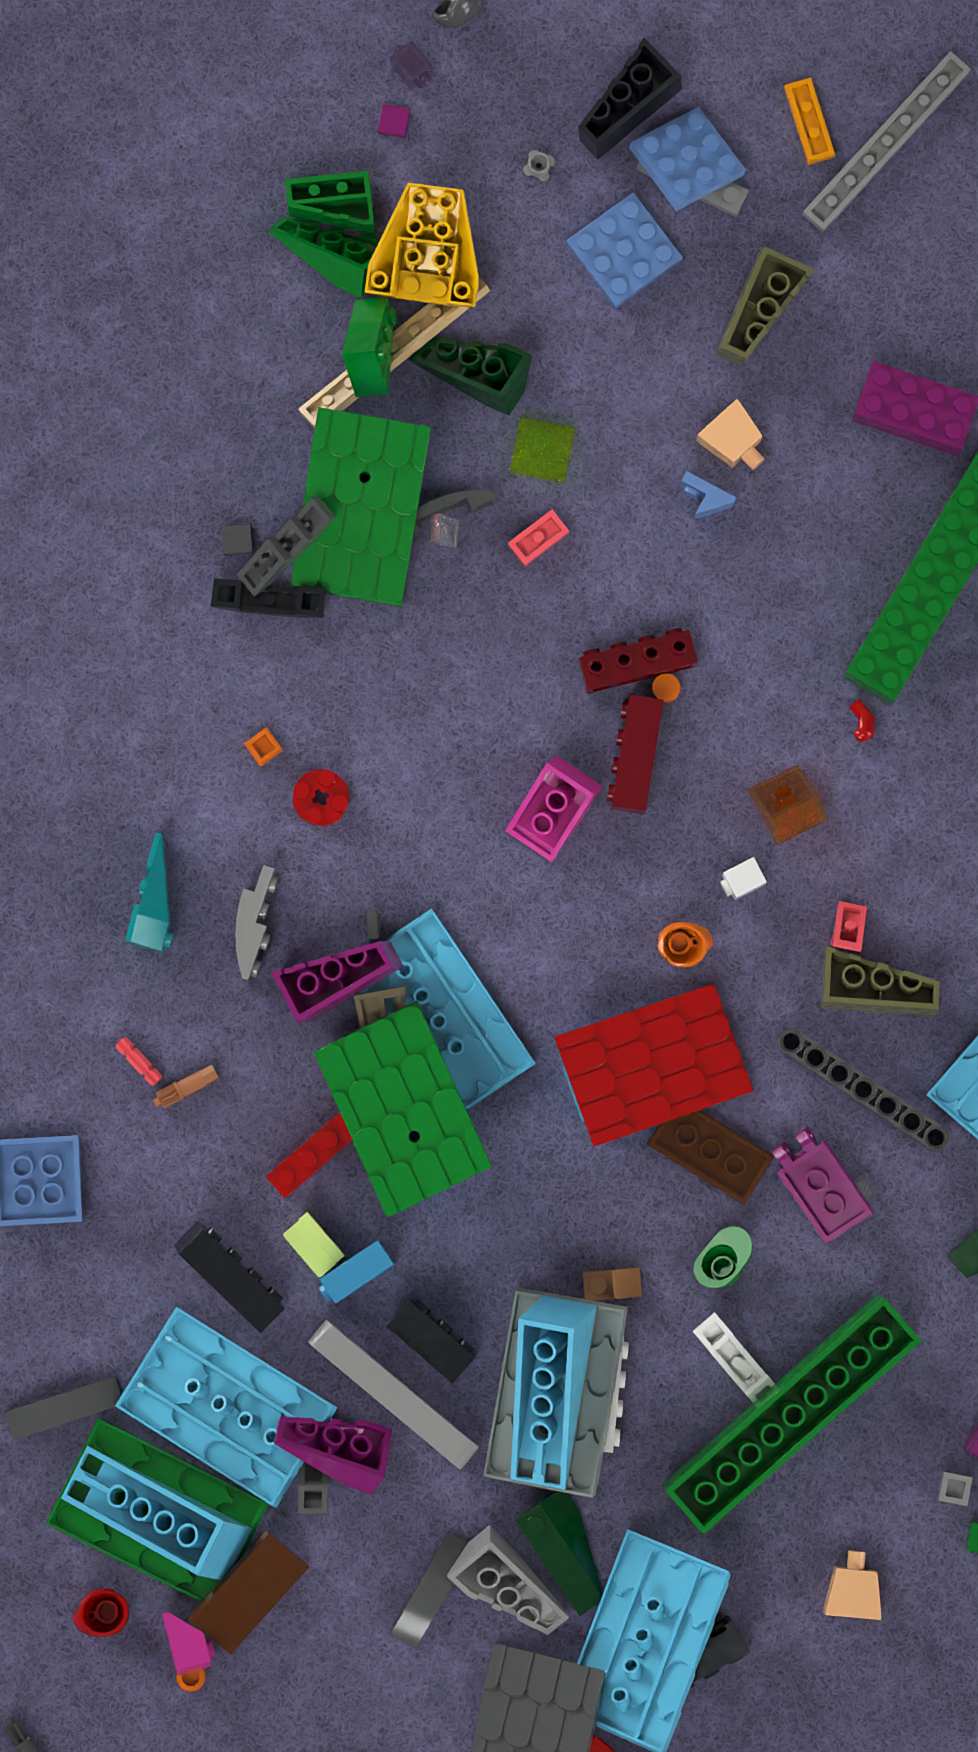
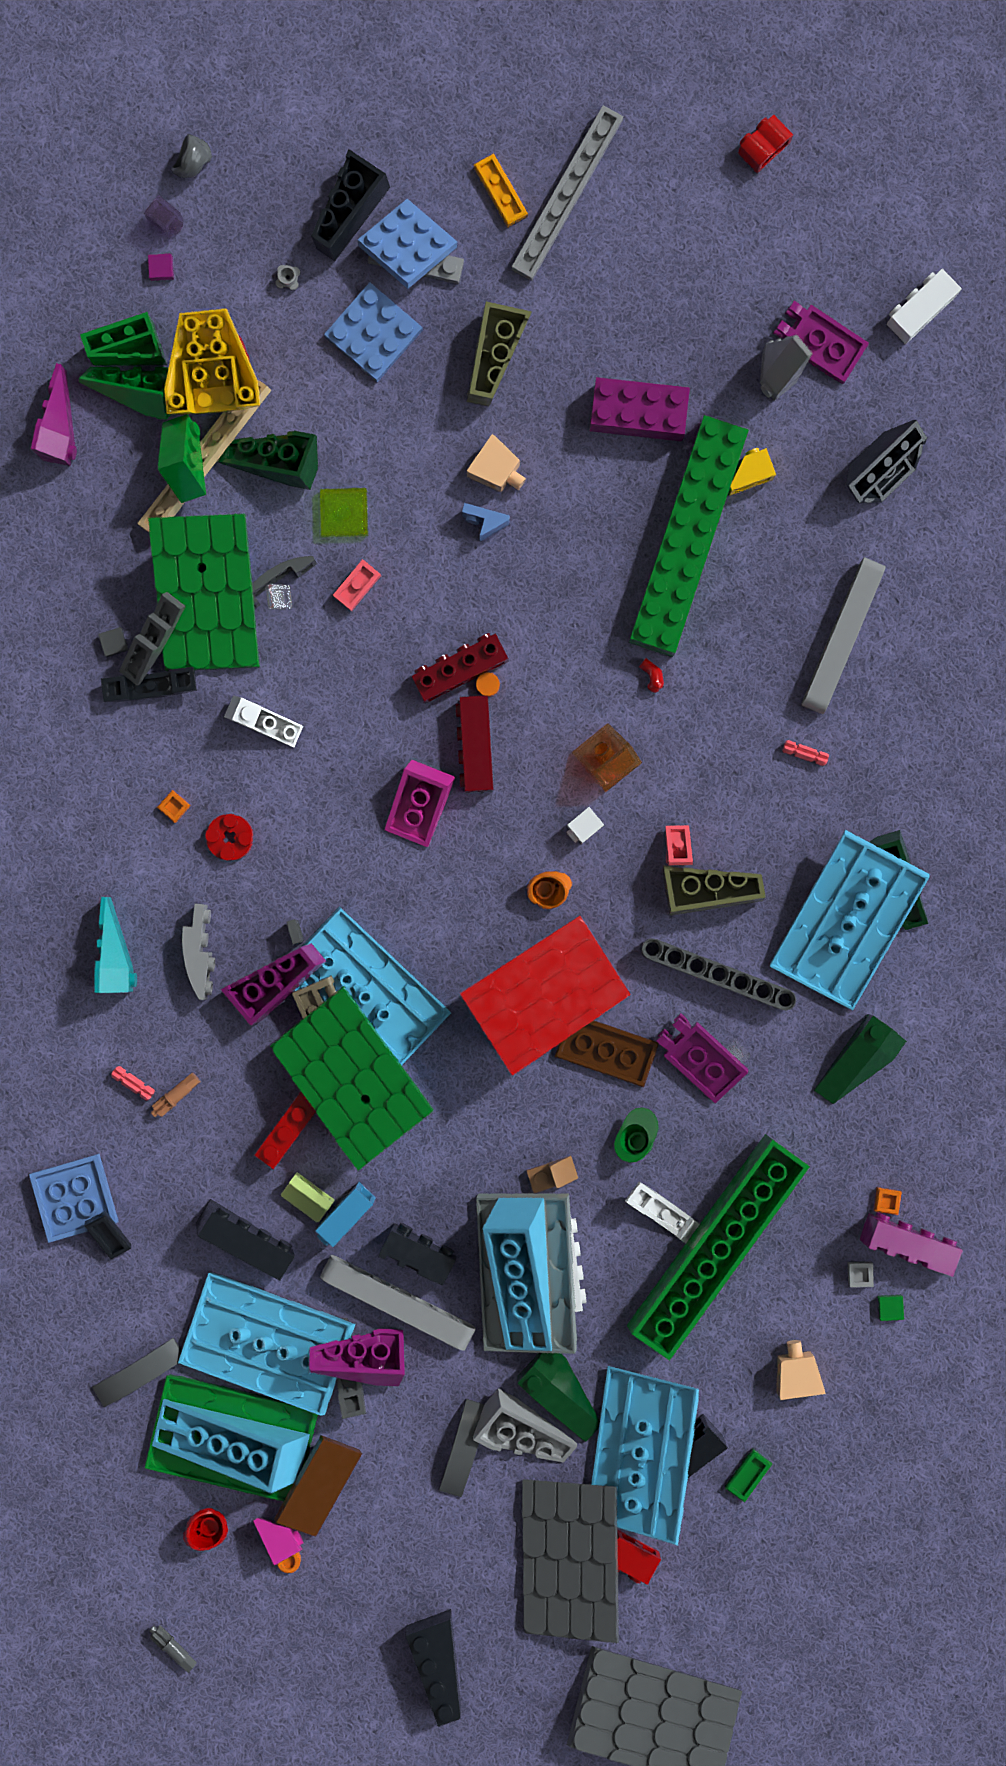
camera: 15 degrees left, 5 degrees up
(68, 1233) = (107, 1235): none -> black tile
(227, 285) = (54, 433): none -> magenta wedge
(392, 670) = (263, 721): none -> white slope
(767, 1702) = (748, 1475): none -> green tile

